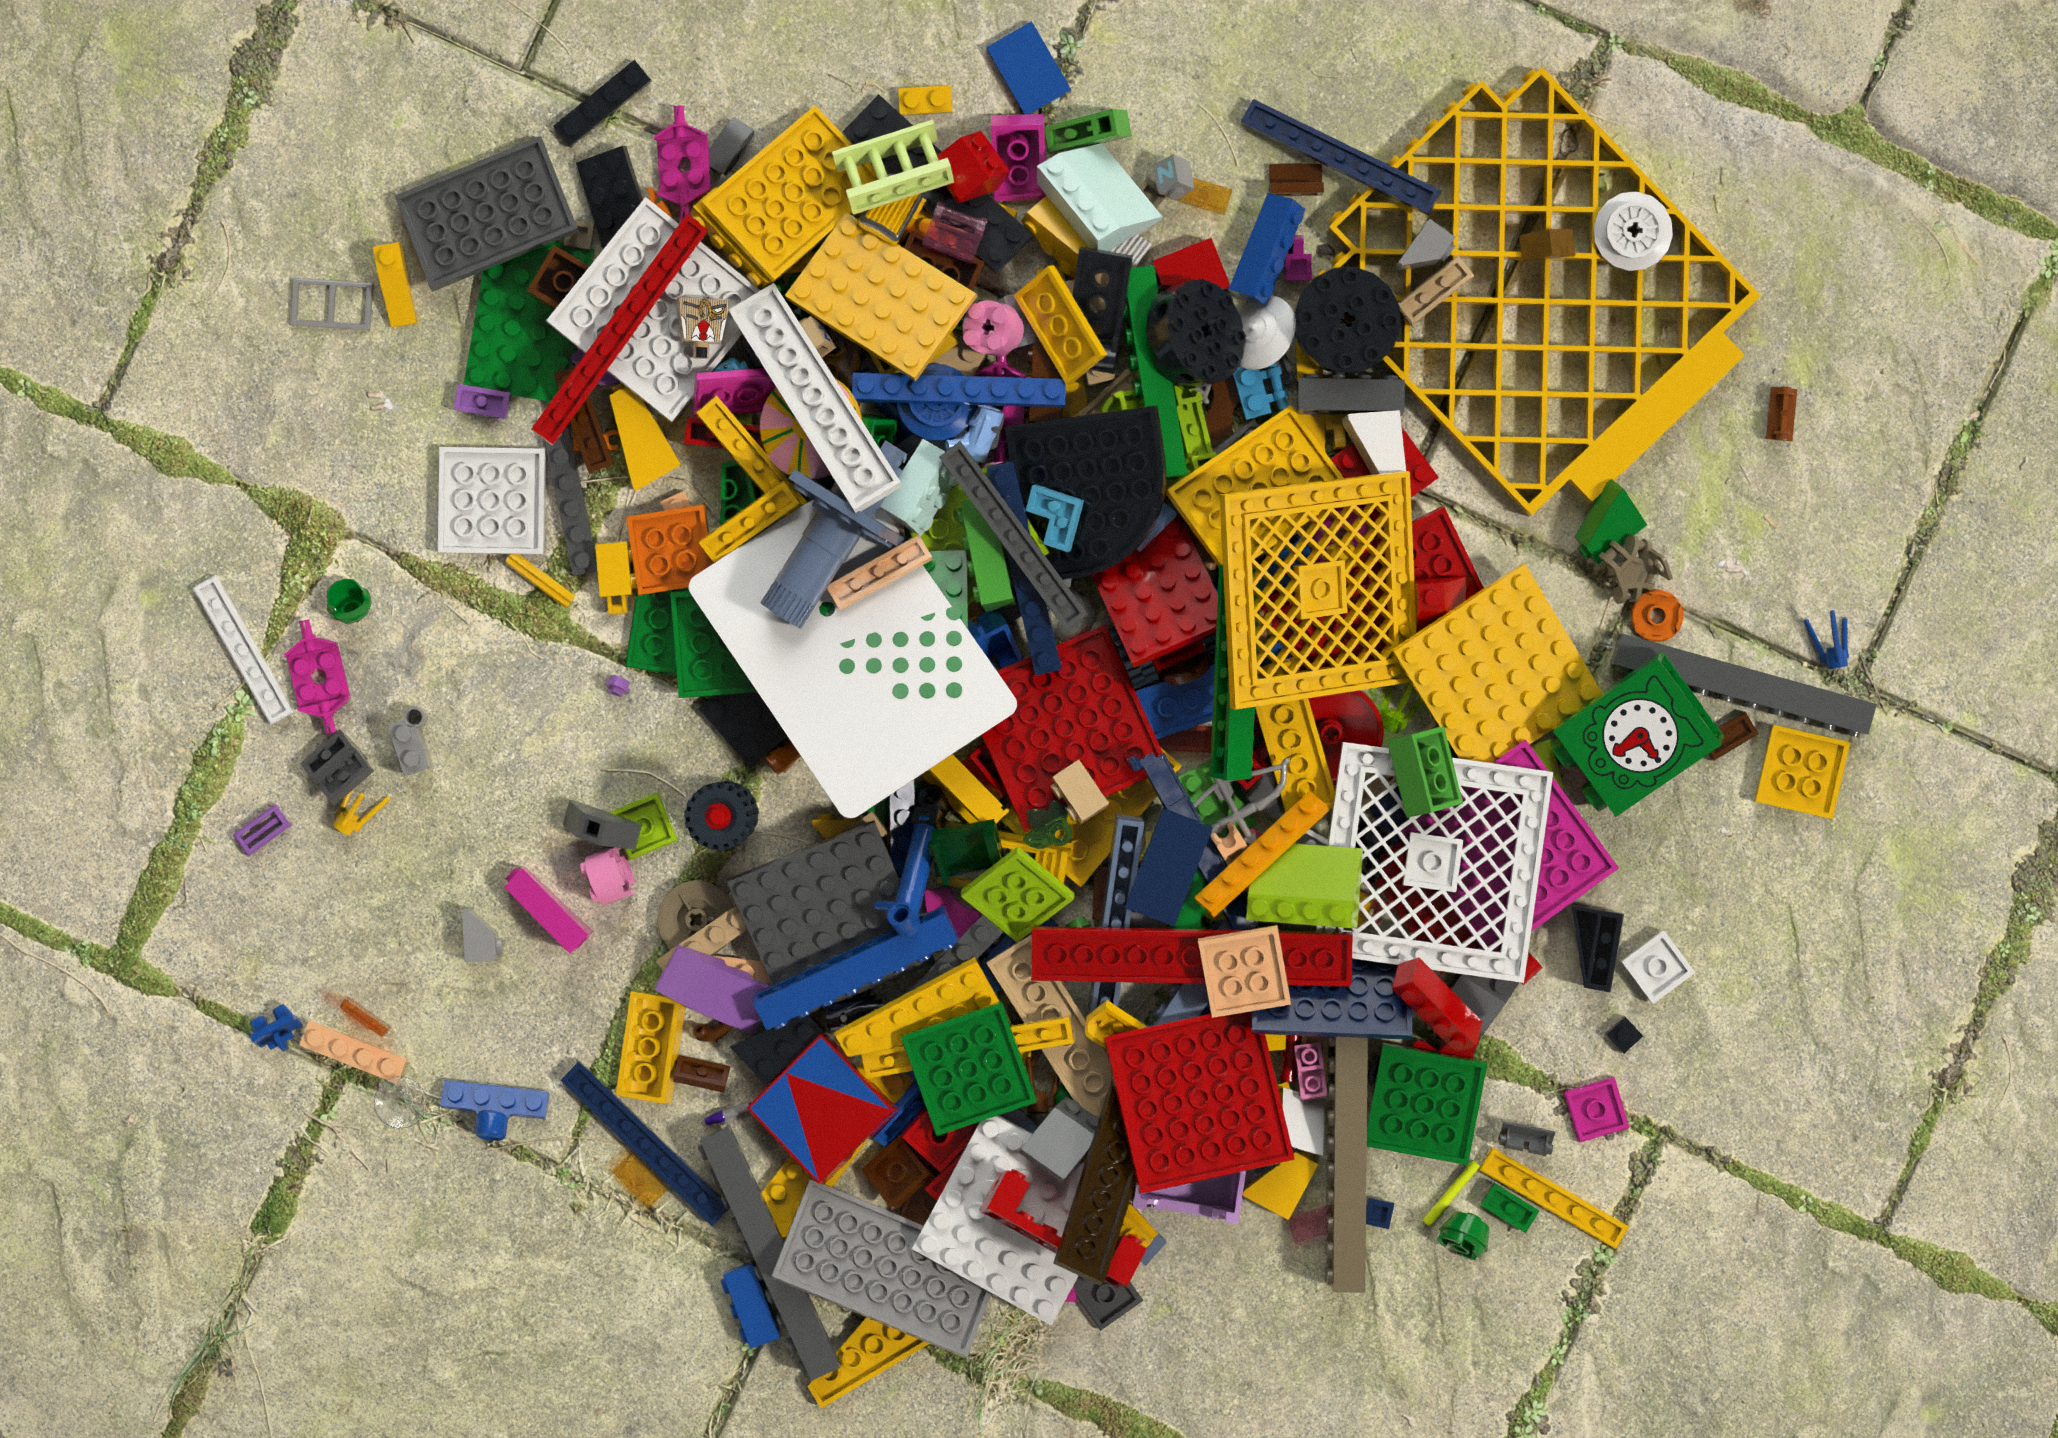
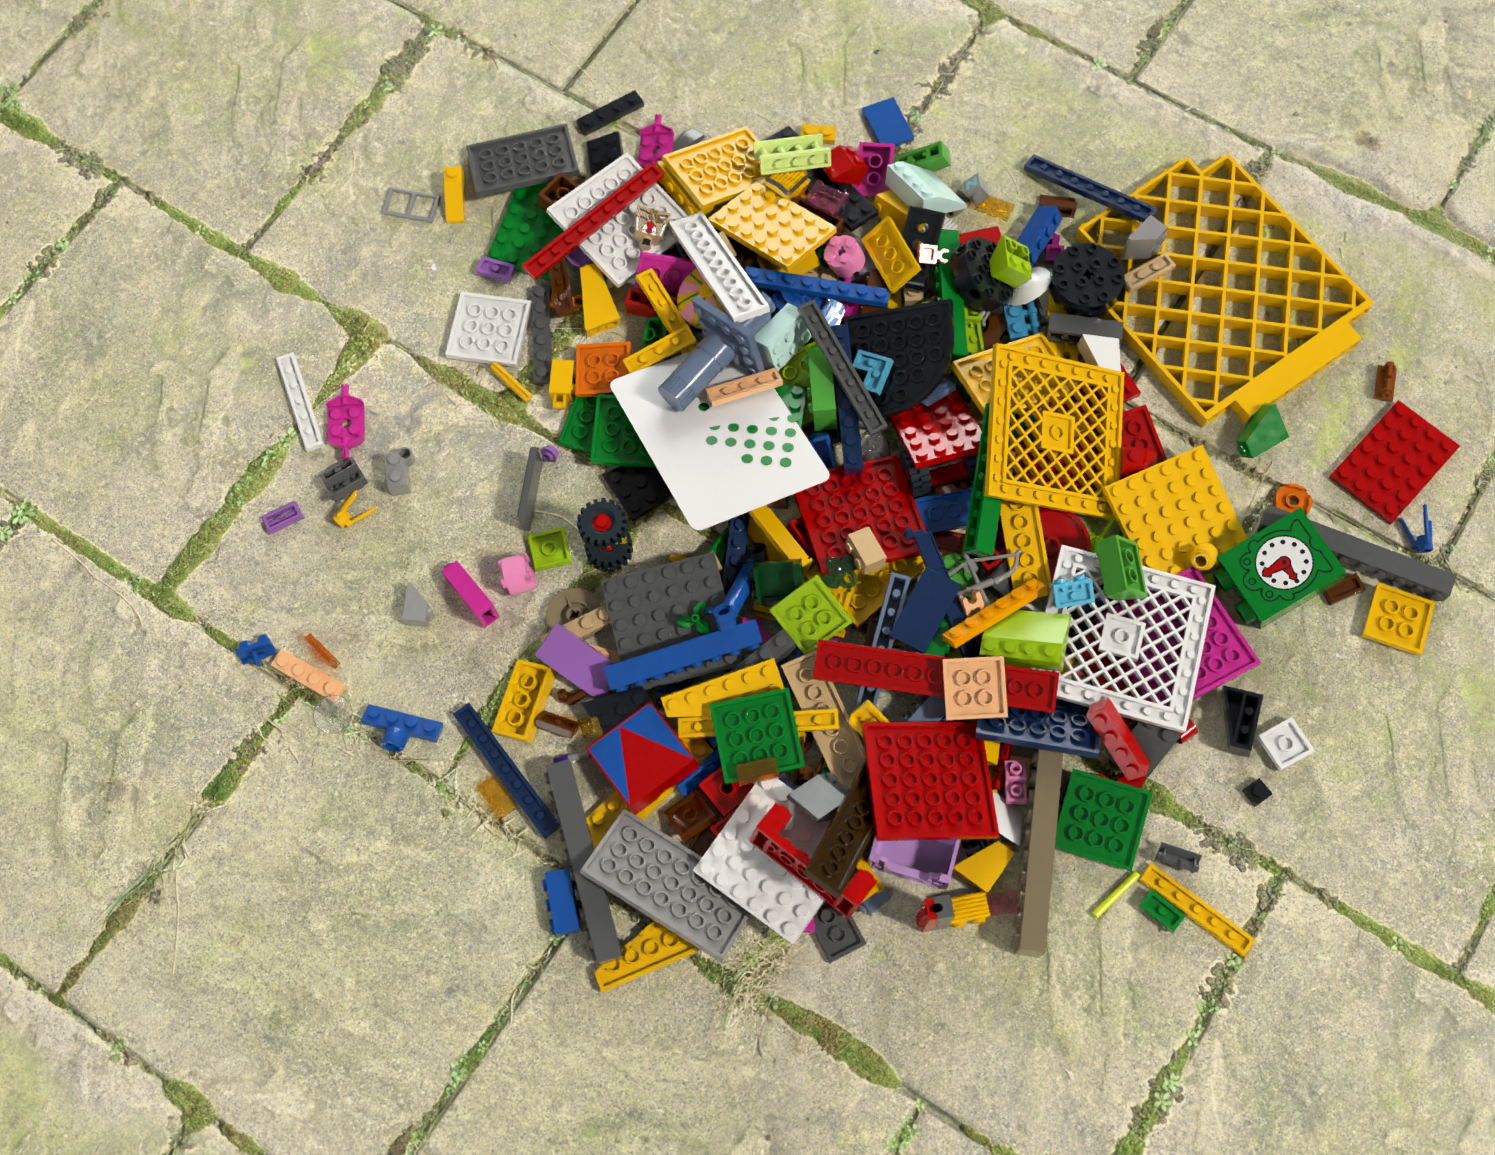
camera: 10 degrees right, 20 degrees down
(348, 601) = (377, 376): green piece -> none
(601, 826) = (520, 541): dark grey slope -> none
(602, 749) = (530, 489): none -> dark grey tile
(747, 1077) = (590, 727): none -> clear yellow plate
(783, 758) = (656, 515): orange cone -> none
(867, 923) = (687, 621): none -> green plant
(976, 1117) = (757, 771): none -> clear orange tile
(1115, 324) = (929, 255): none -> plate
(1223, 1264) = (935, 913): none -> piece
(1234, 315) = (1010, 262): none -> lime slope
(1264, 1241) = (969, 908): none -> yellow brick
(1361, 813) = (1072, 592): none -> medium azure bracket
(1379, 1212) = (1059, 900): dark blue plate -> none
(1465, 1234) = (1126, 925): green cone -> none
(1536, 730) = (1204, 556): none -> yellow head
(1547, 244) = (1226, 252): pearl gold slope -> none
(1596, 1109) = (1233, 846): dark pink tile -> none
(1618, 245) = (1275, 256): white piece -> none
(1635, 571) = (1281, 462): dark tan piece -> none
(1795, 535) = (1394, 462): none -> red plate

